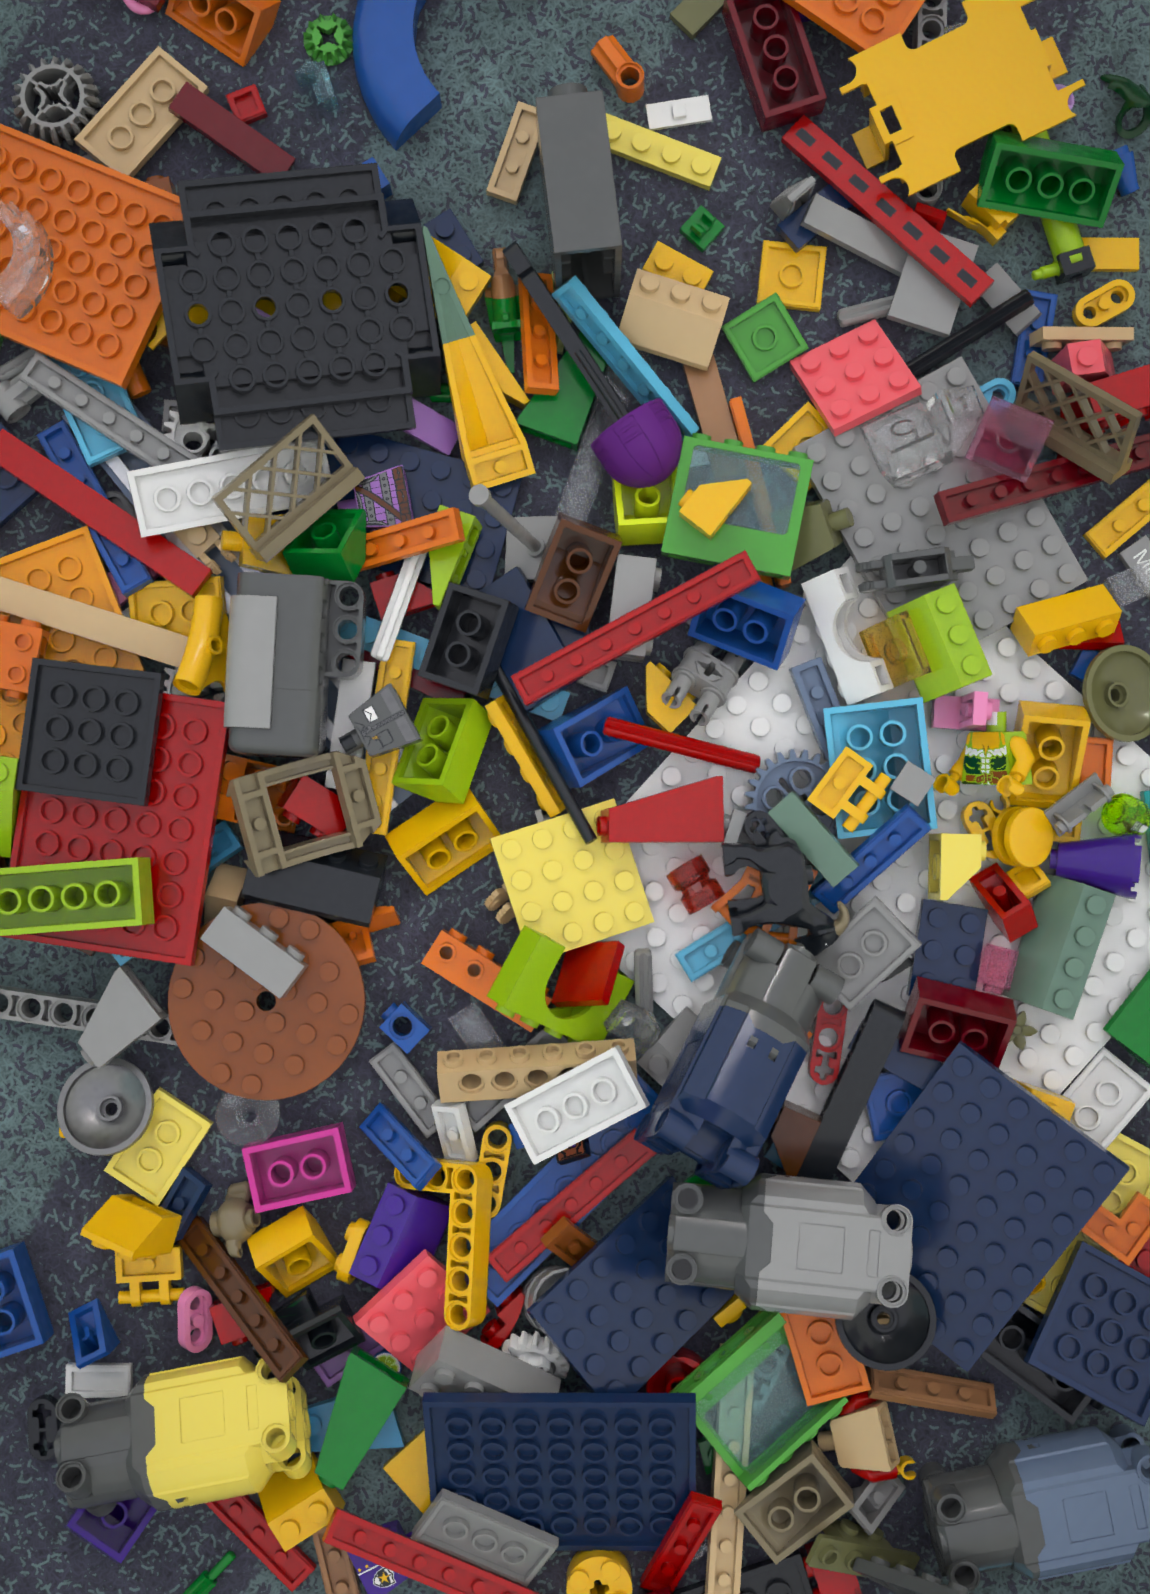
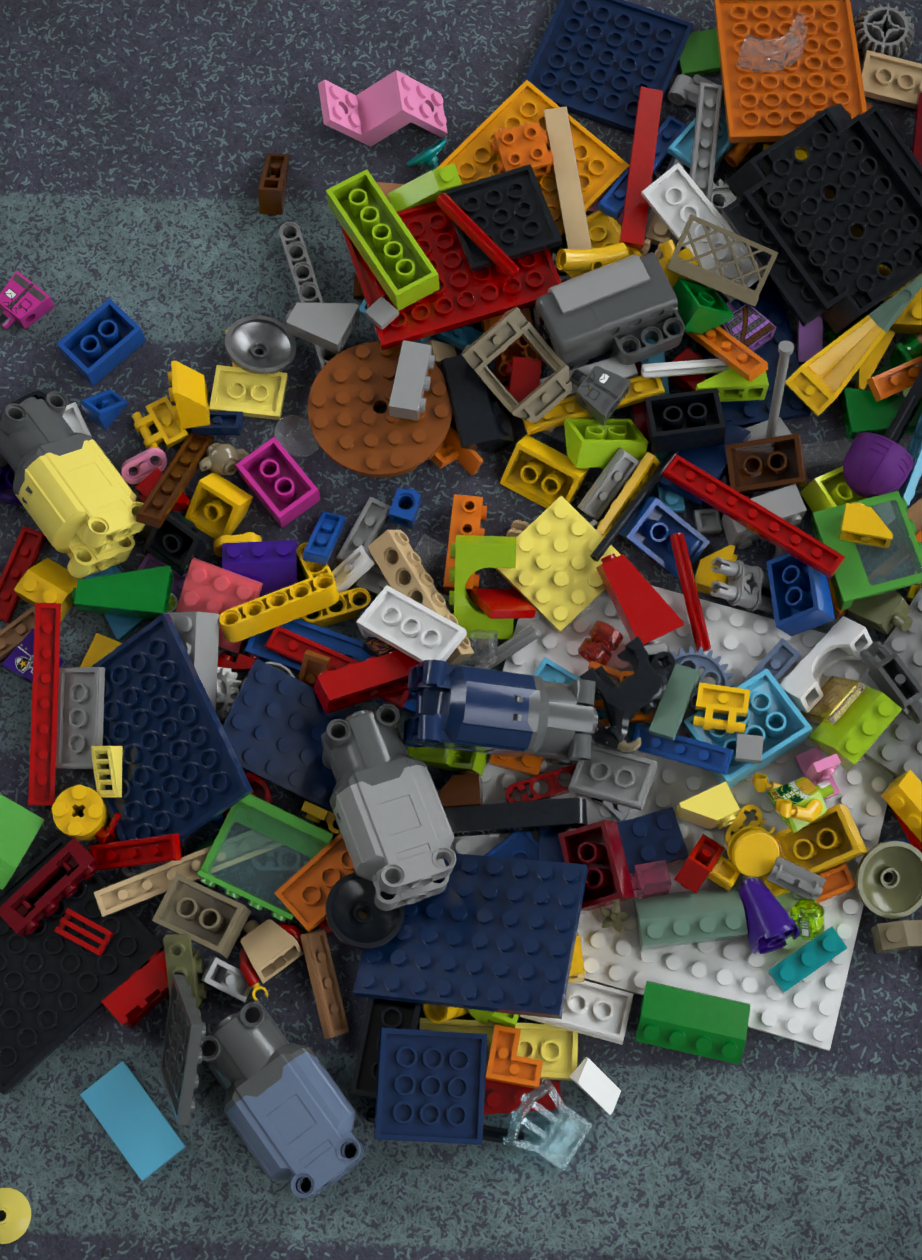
camera: 70 degrees right, 15 degrees down
(103, 777) = (477, 235): none -> red axle
(147, 945) = (381, 313): none -> light grey tile
(498, 771) = (608, 484): none -> light grey tile
(558, 1533) = (99, 761): none -> light yellow slope
(612, 1190) = (363, 681): none -> red brick
(636, 1560) = (106, 834): none -> red hand

